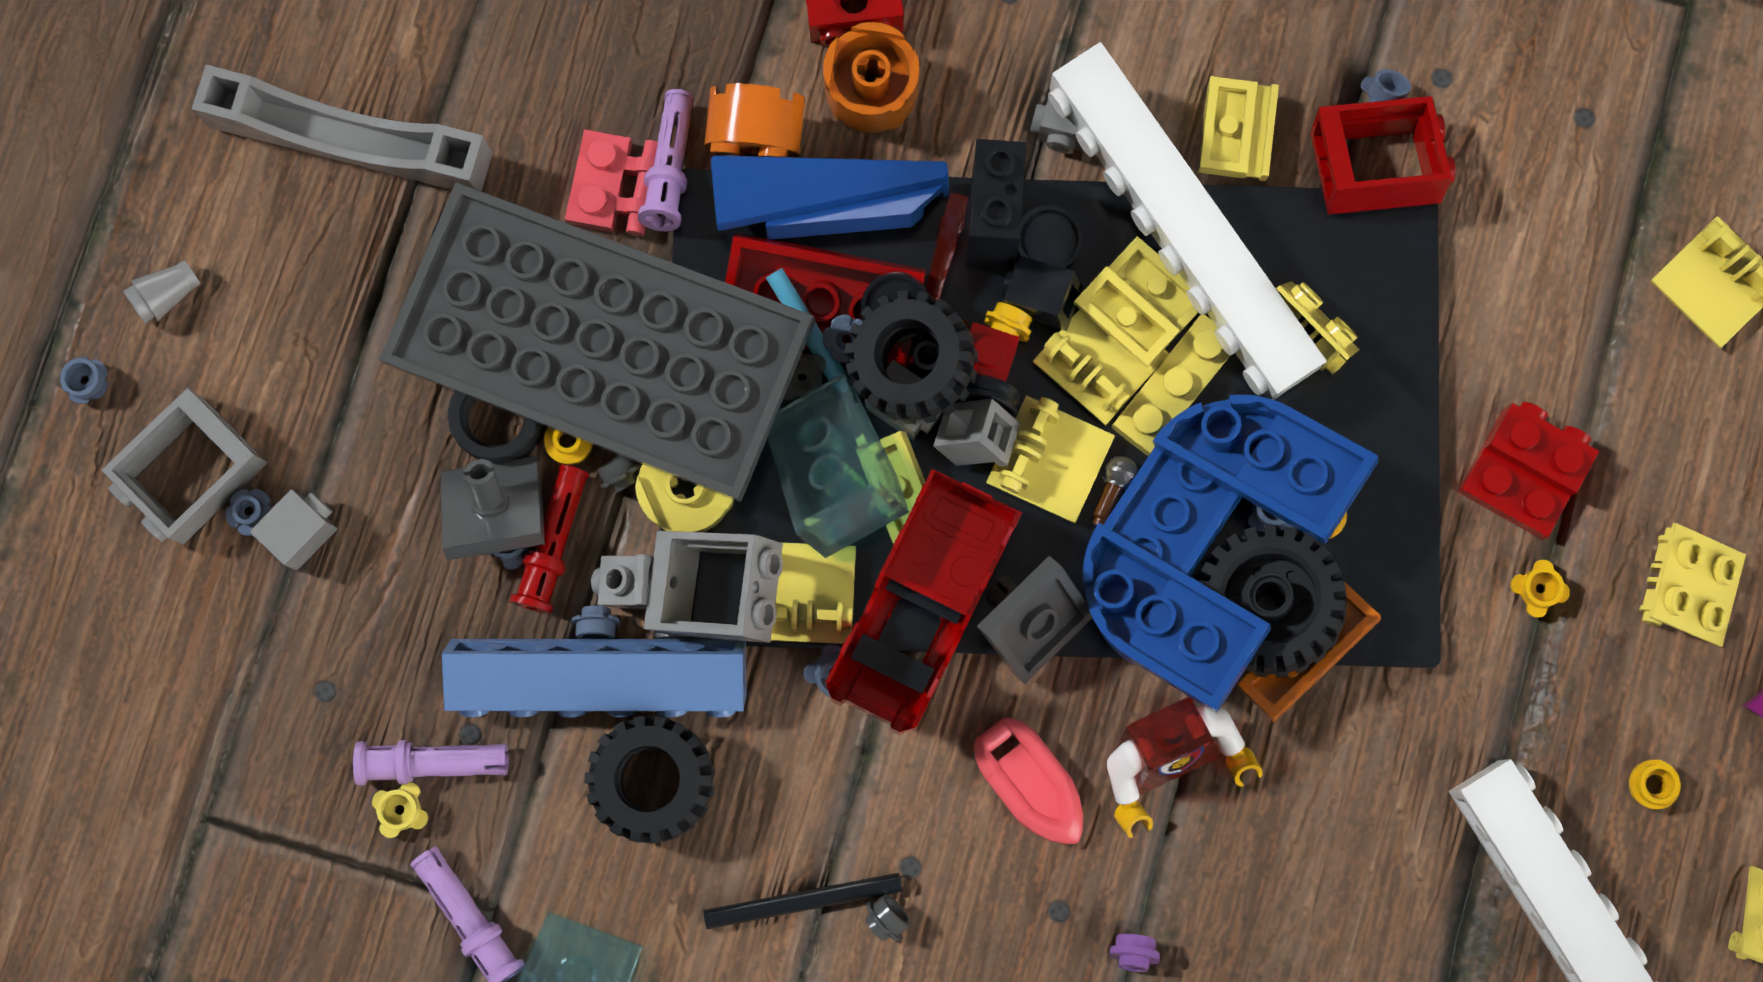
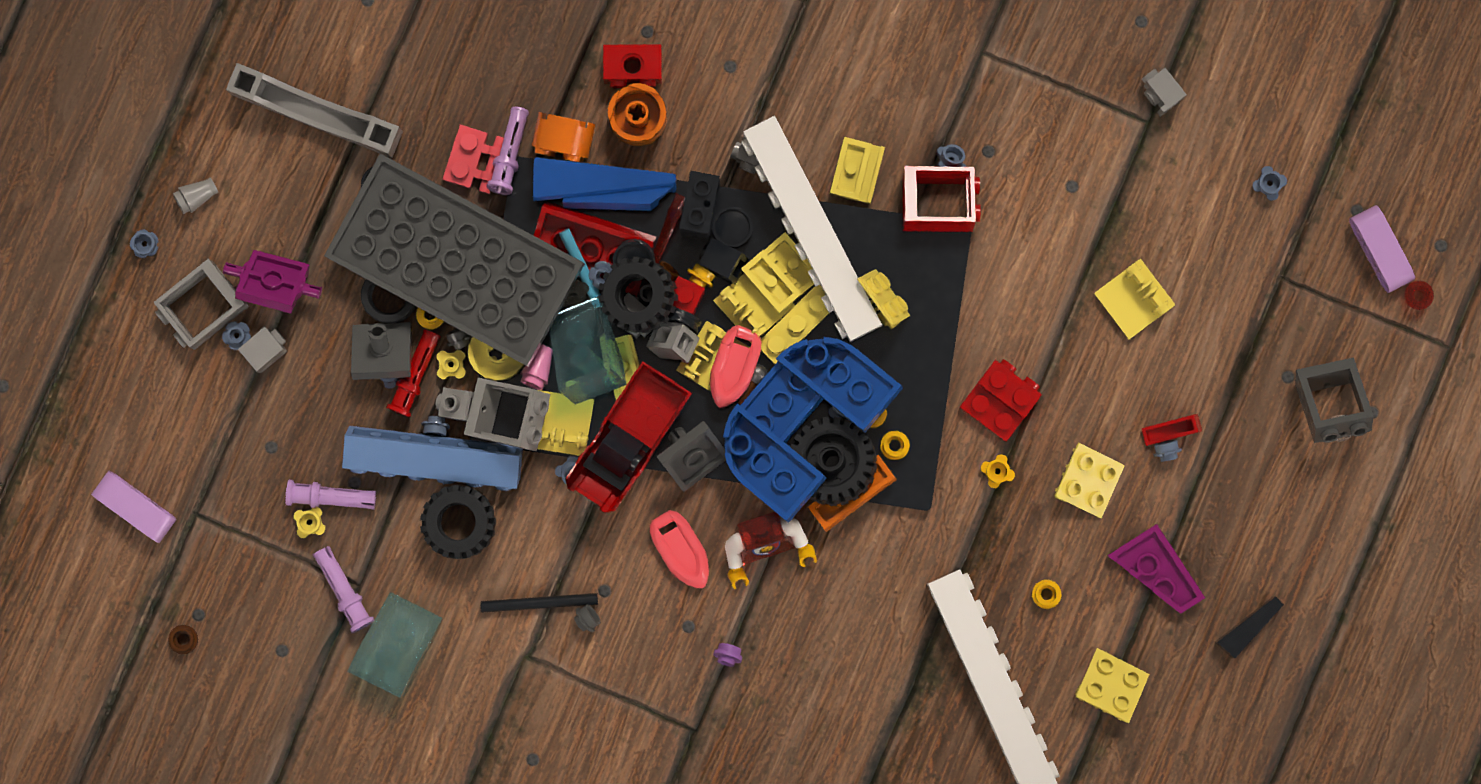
camera: 10 degrees right, 5 degrees up
(99, 818) = (134, 506): none -> lavender beam
(298, 414) = (272, 281): none -> magenta plate
(621, 527) = (457, 370): none -> light yellow plate
(758, 506) = (538, 372): none -> bright pink cone
(910, 627) = (619, 451): none -> black brick
(1083, 463) = (734, 366): none -> coral piece
(1381, 560) = (901, 438): none -> yellow plate

